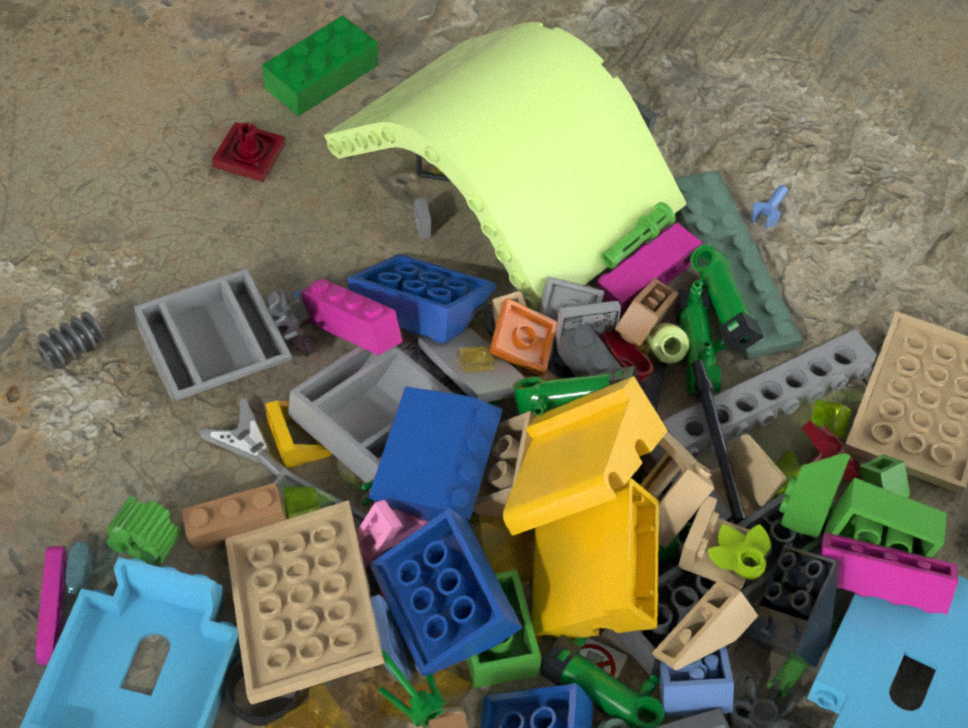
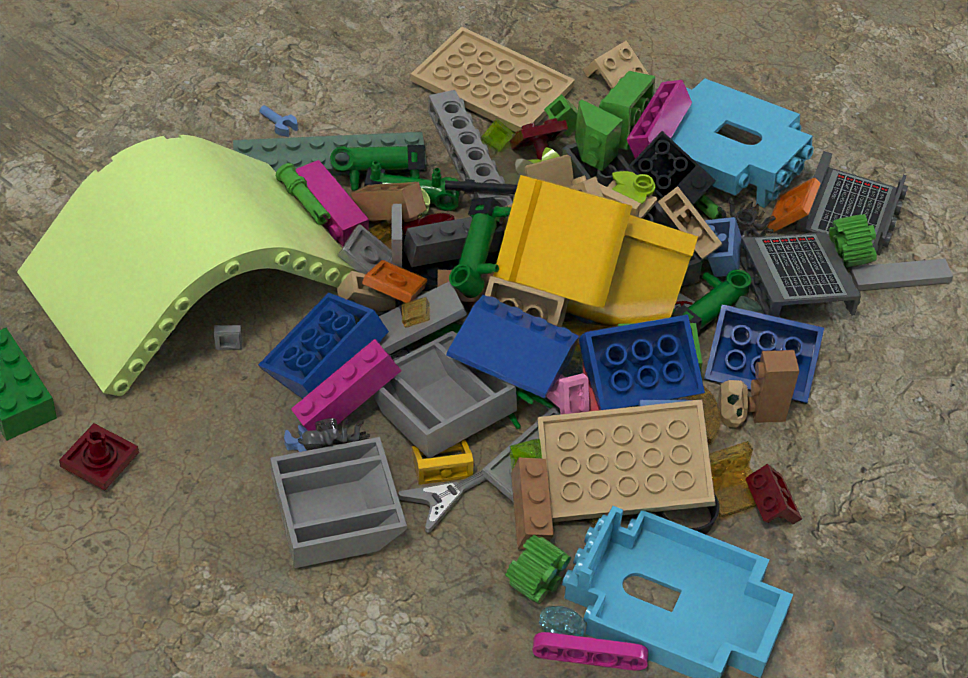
camera: 80 degrees left, 5 degrees down
(69, 339) = (303, 617): dark grey piece -> none
(423, 705) = (726, 397): green plant -> none

